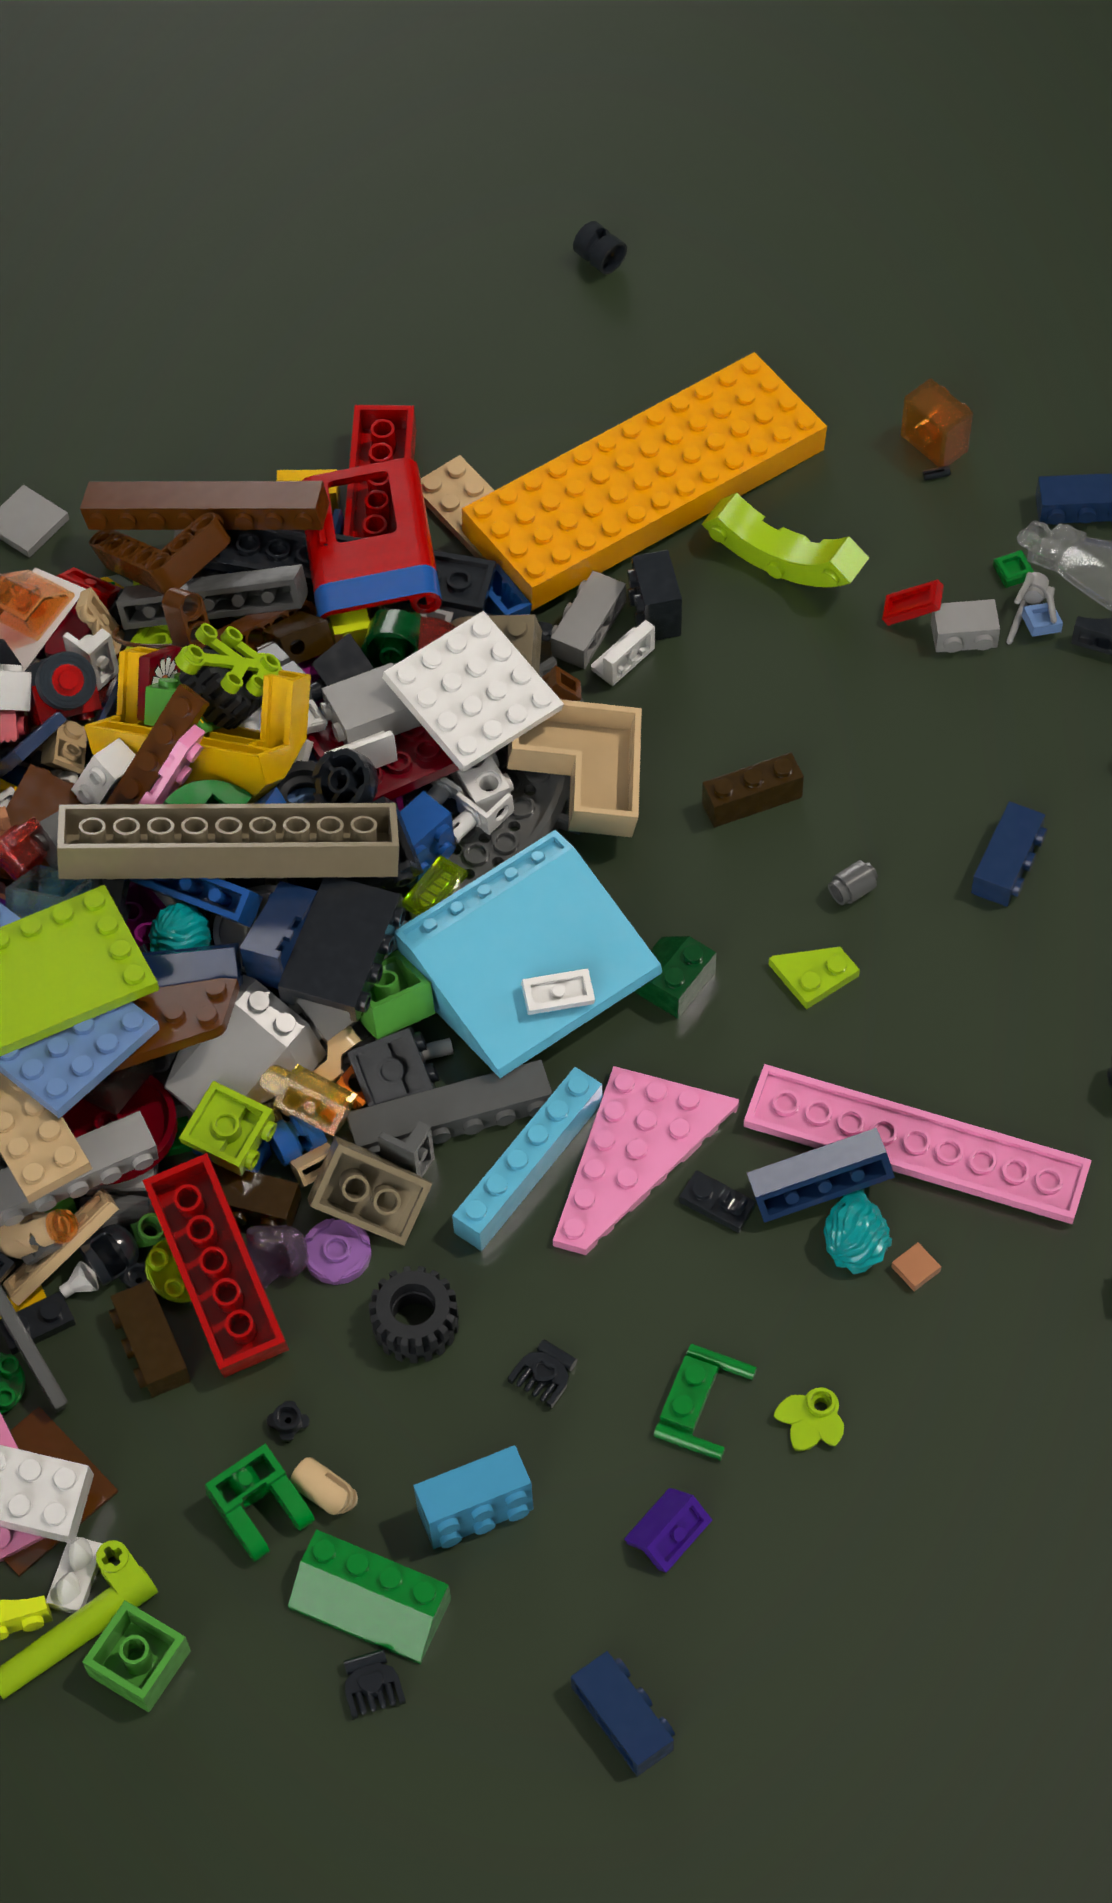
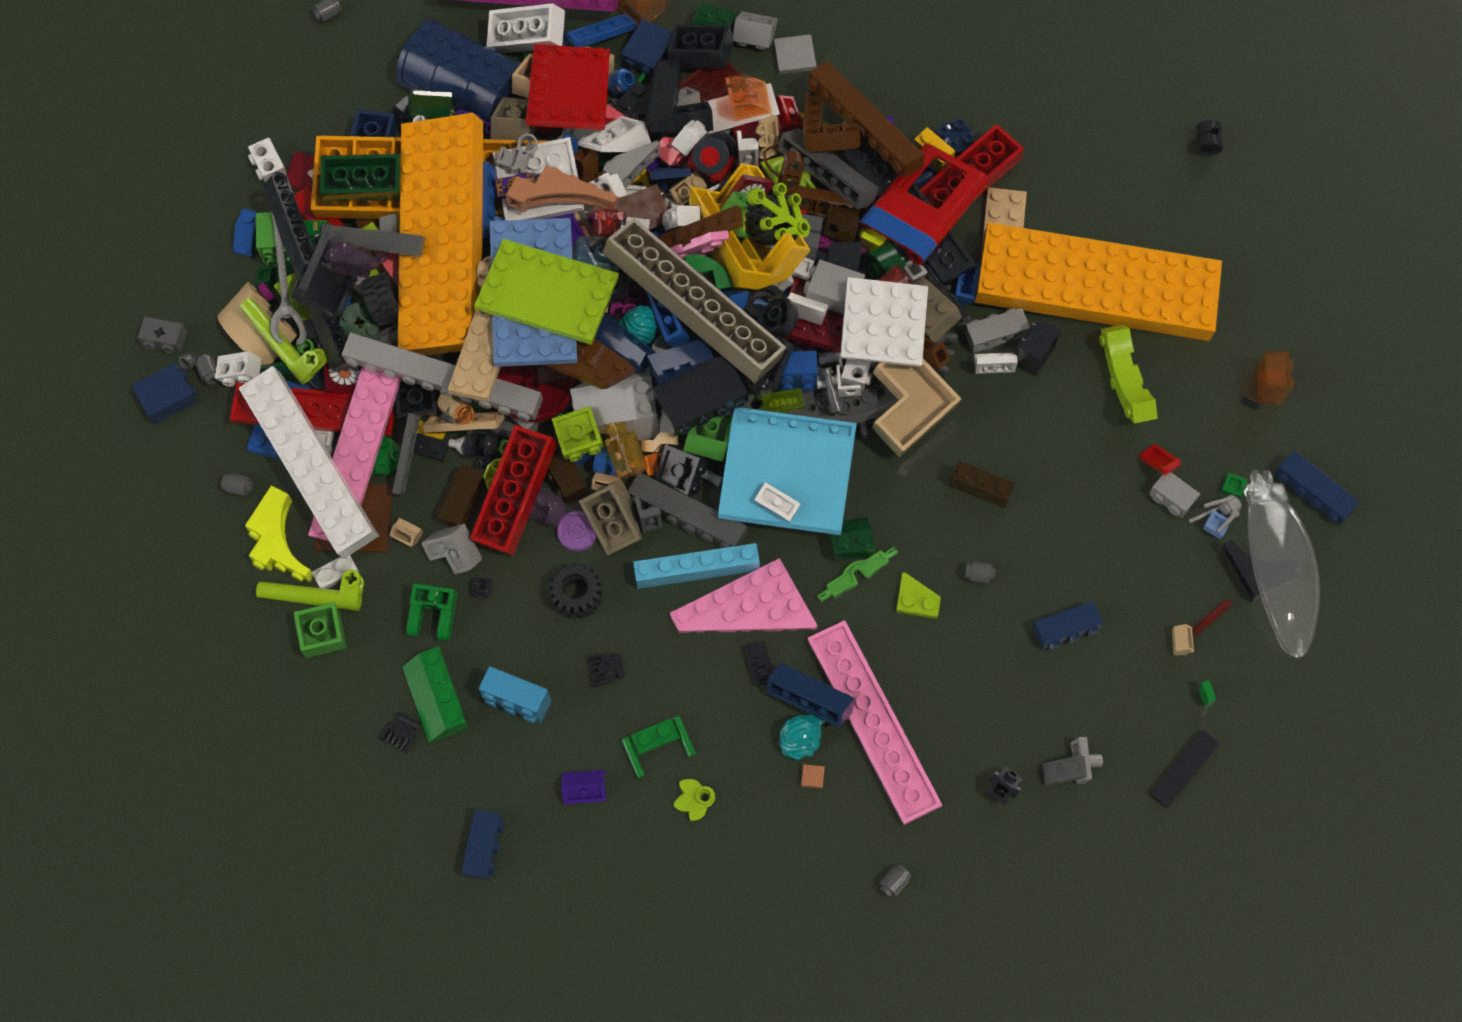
camera: 45 degrees right, 10 degrees up
(120, 1442) = (406, 532): none -> tan piece
(199, 1398) = (454, 545): none -> light grey panel
(315, 455) = (956, 135): none -> dark blue dish
(323, 1487) = (464, 630): tan arm -> none
(483, 831) = (831, 393): none -> dark grey piece
(715, 1020) = (865, 567): none -> bright green piece

